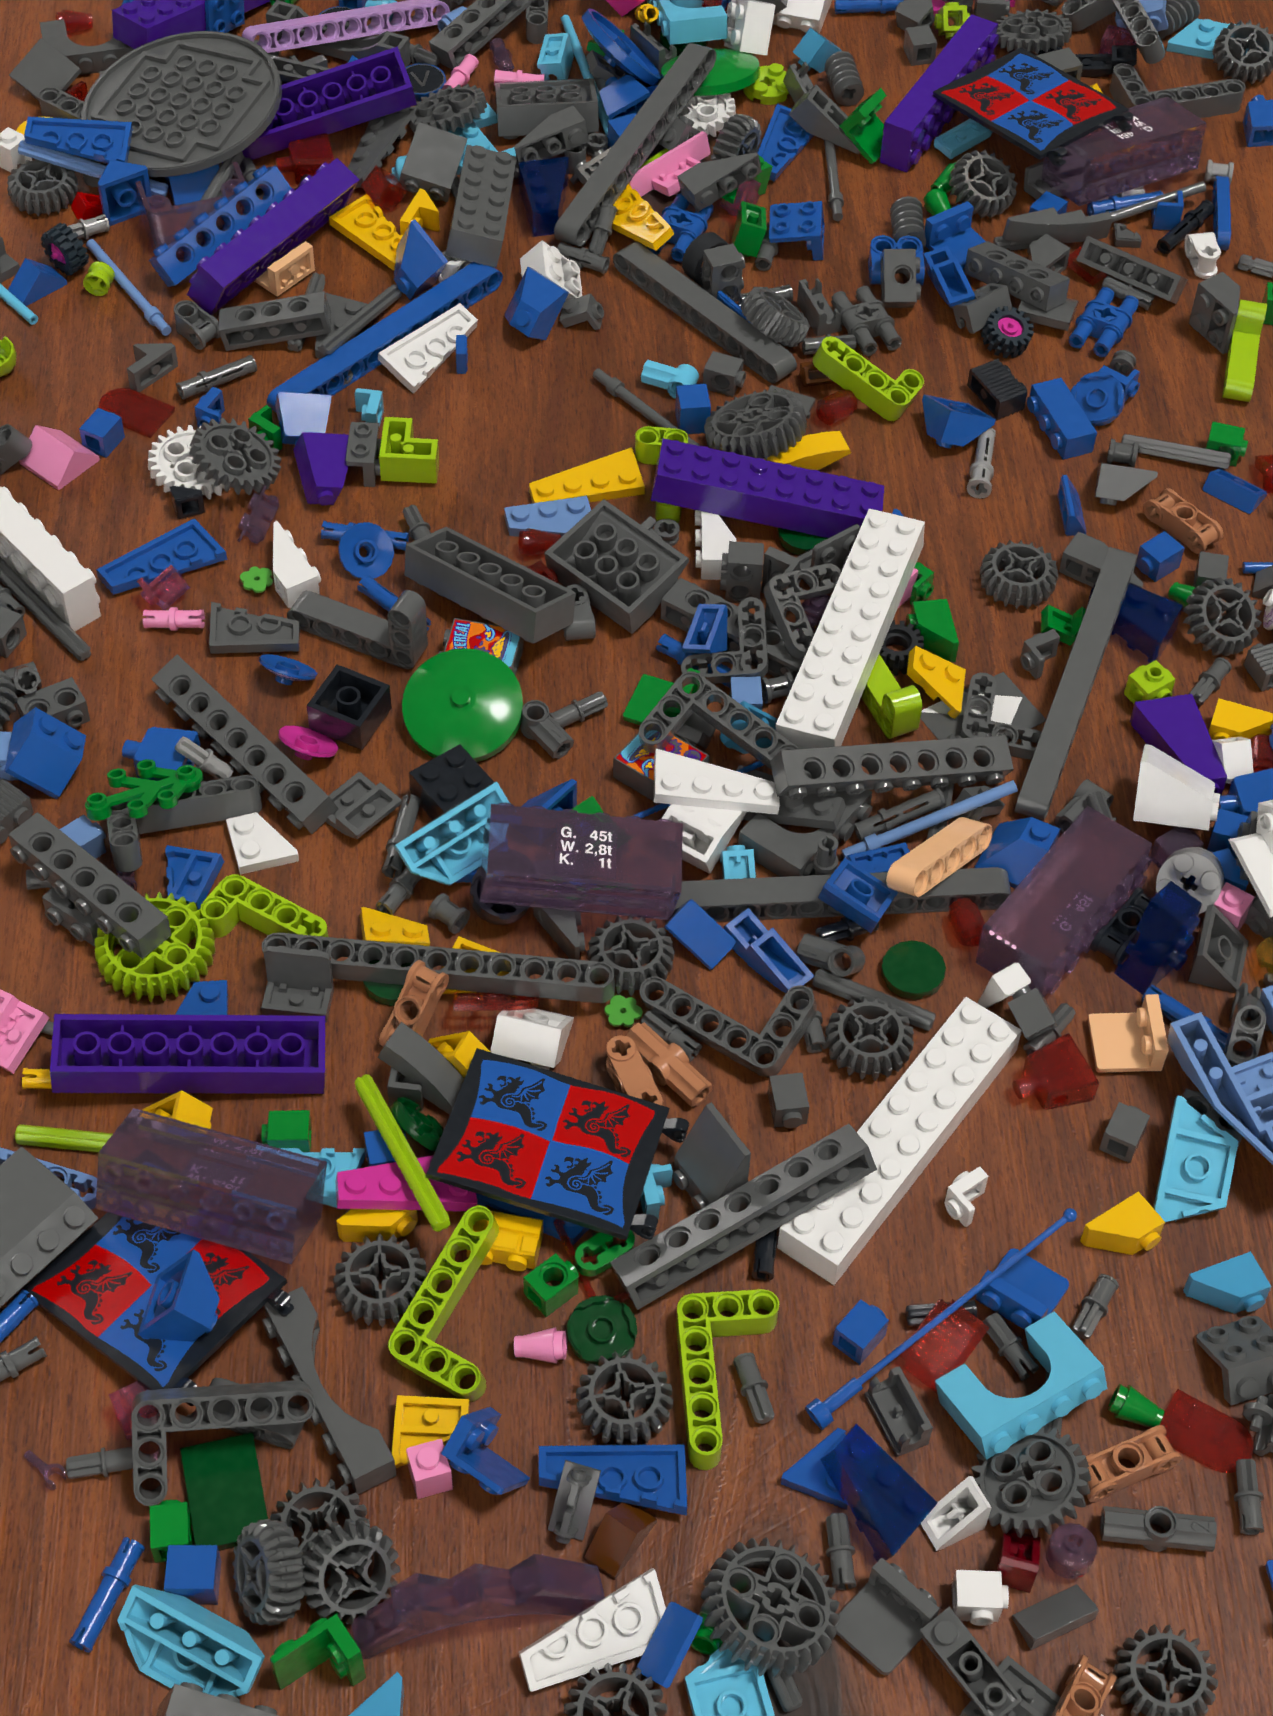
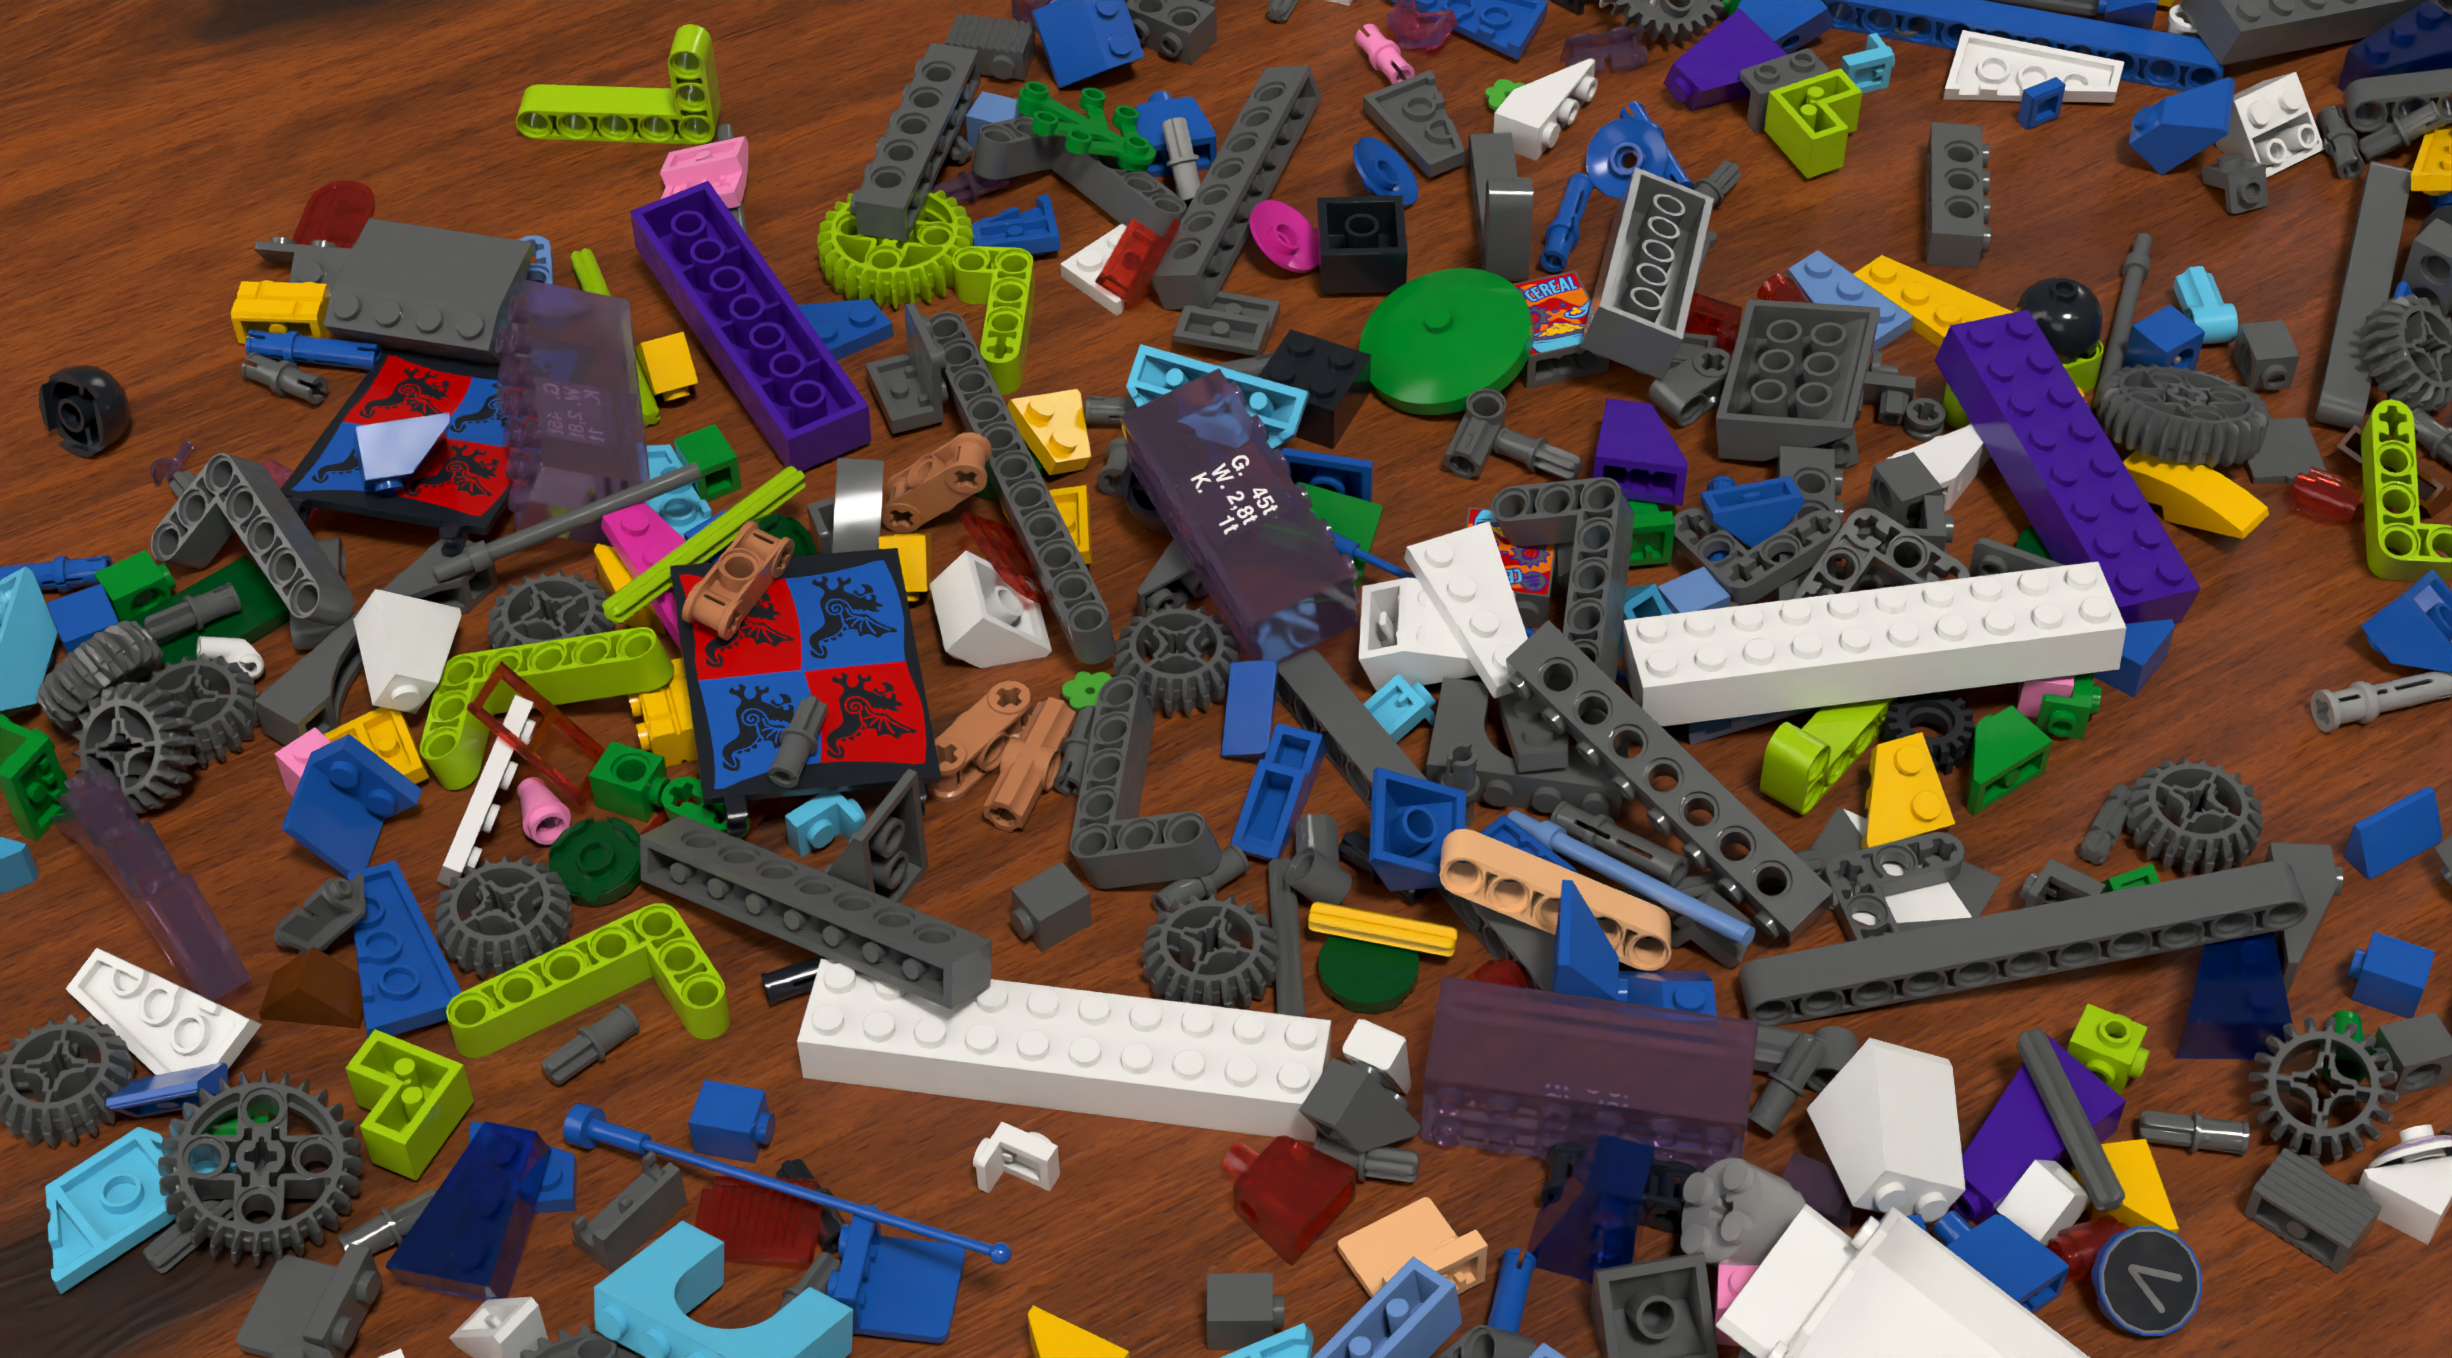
camera: 65 degrees right, 5 degrees down
(229, 1496) = (193, 612): none -> dark grey axle
(277, 1486) = (232, 650): none -> white arm
(279, 820) = (1134, 259): none -> clear red panel
(313, 1288) = (481, 555): none -> dark grey bar
(368, 1369) = (404, 647): none -> white slope
(473, 1137) = (738, 580): none -> nougat piece
(486, 1304) = (551, 716): none -> clear red window
(505, 1356) = (480, 811): none -> white wing
(506, 428) = (1956, 195): none -> dark grey brick
(615, 1164) = (798, 742): none -> dark grey axle
(617, 665) = (1640, 453): none -> dark purple slope
(651, 428) = (2066, 315): none -> black cylinder
(758, 1496) = (412, 1100): none -> lime brick
(900, 947) = (1383, 929): none -> yellow axle
(996, 863) = (1582, 953): none -> blue slope
(999, 610) = (2106, 826): none -> dark grey axle
(1197, 718) = (2070, 1120): none -> dark grey axle

